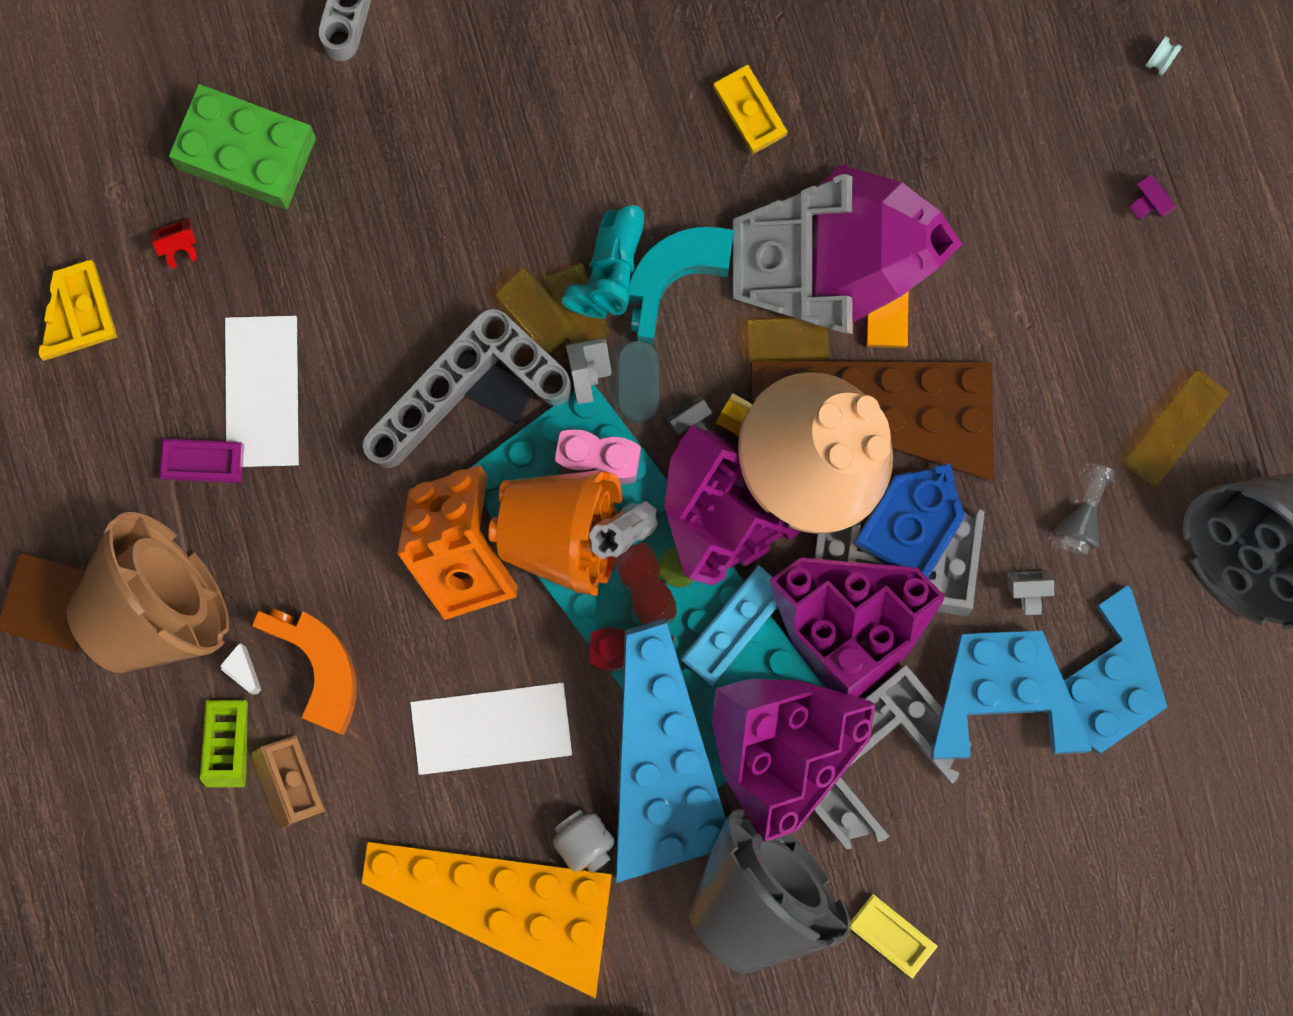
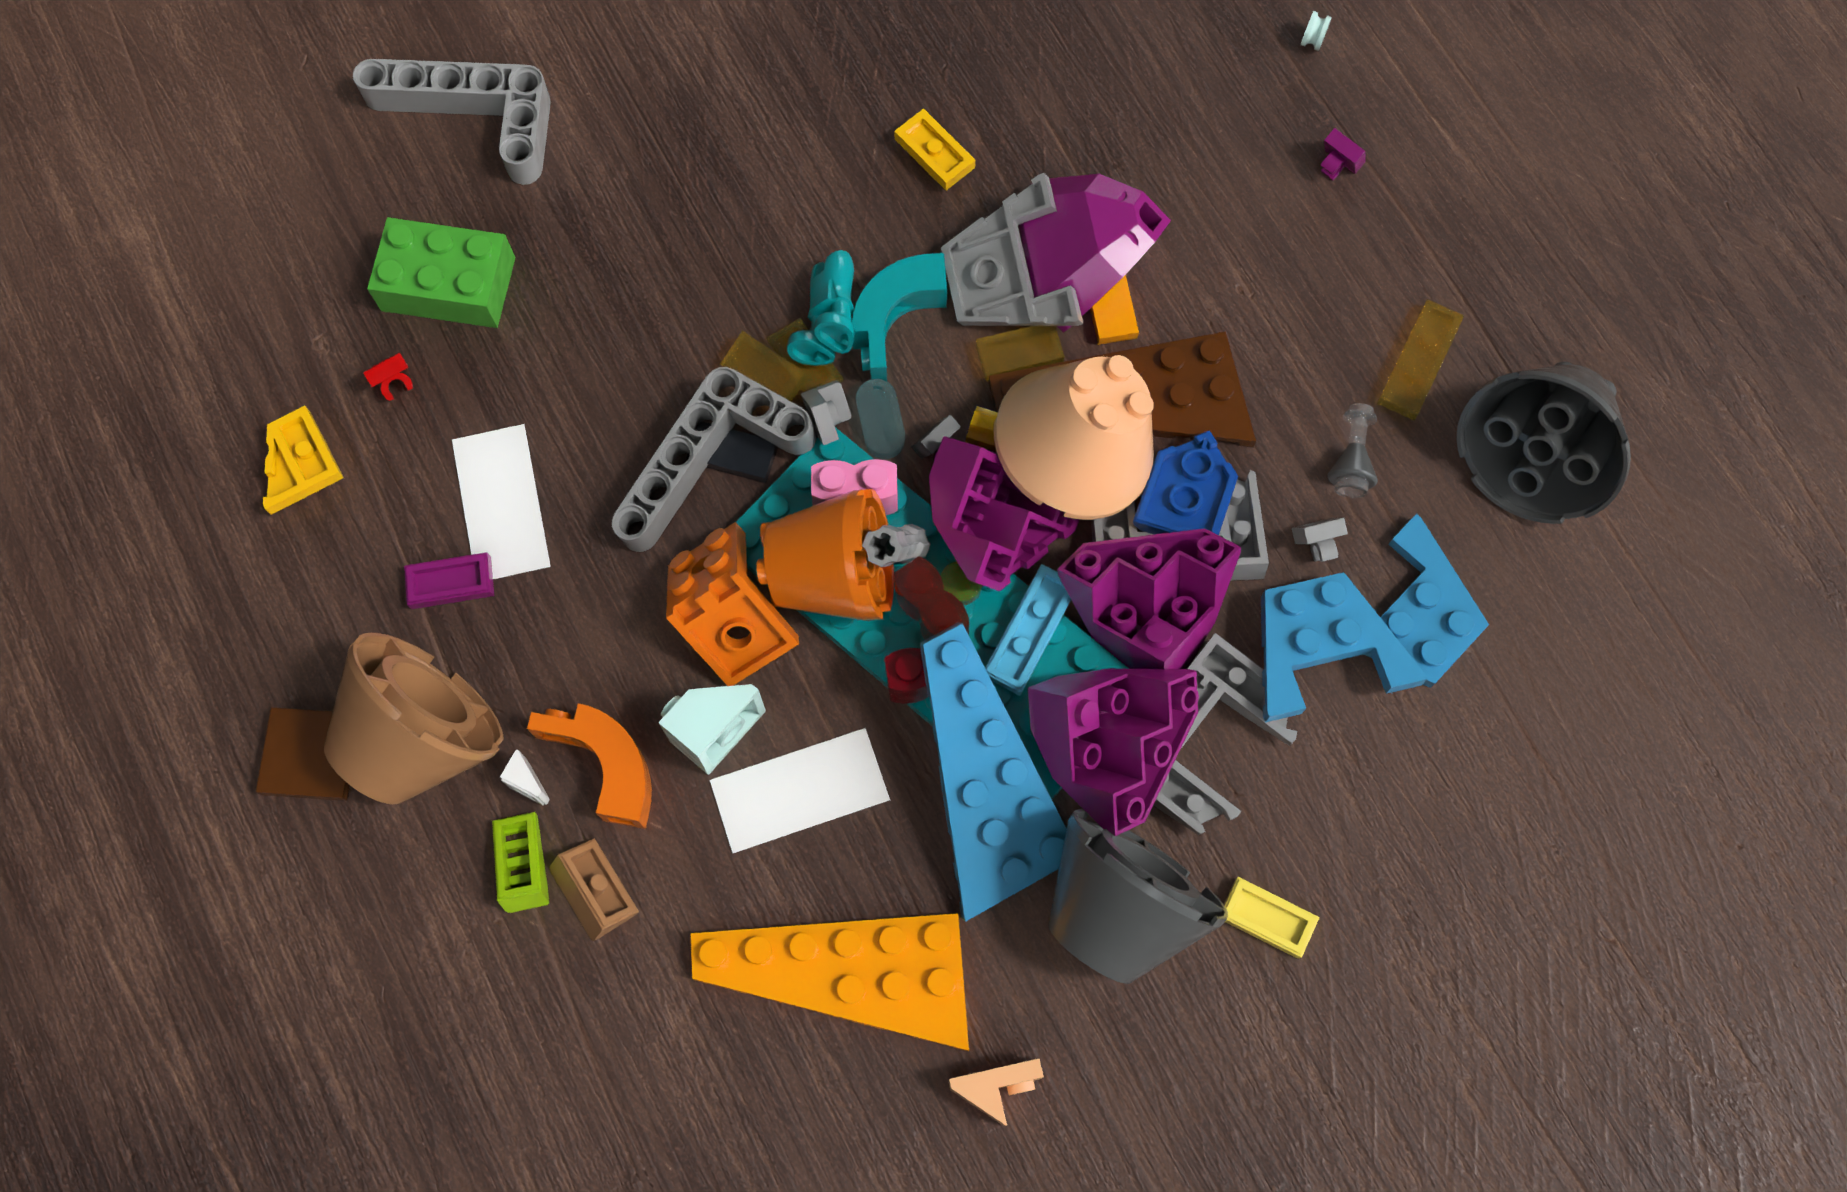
camera: 10 degrees left, 10 degrees down
(419, 655) = (711, 721): none -> light aqua slope
(583, 841) = (921, 883): light grey head -> none

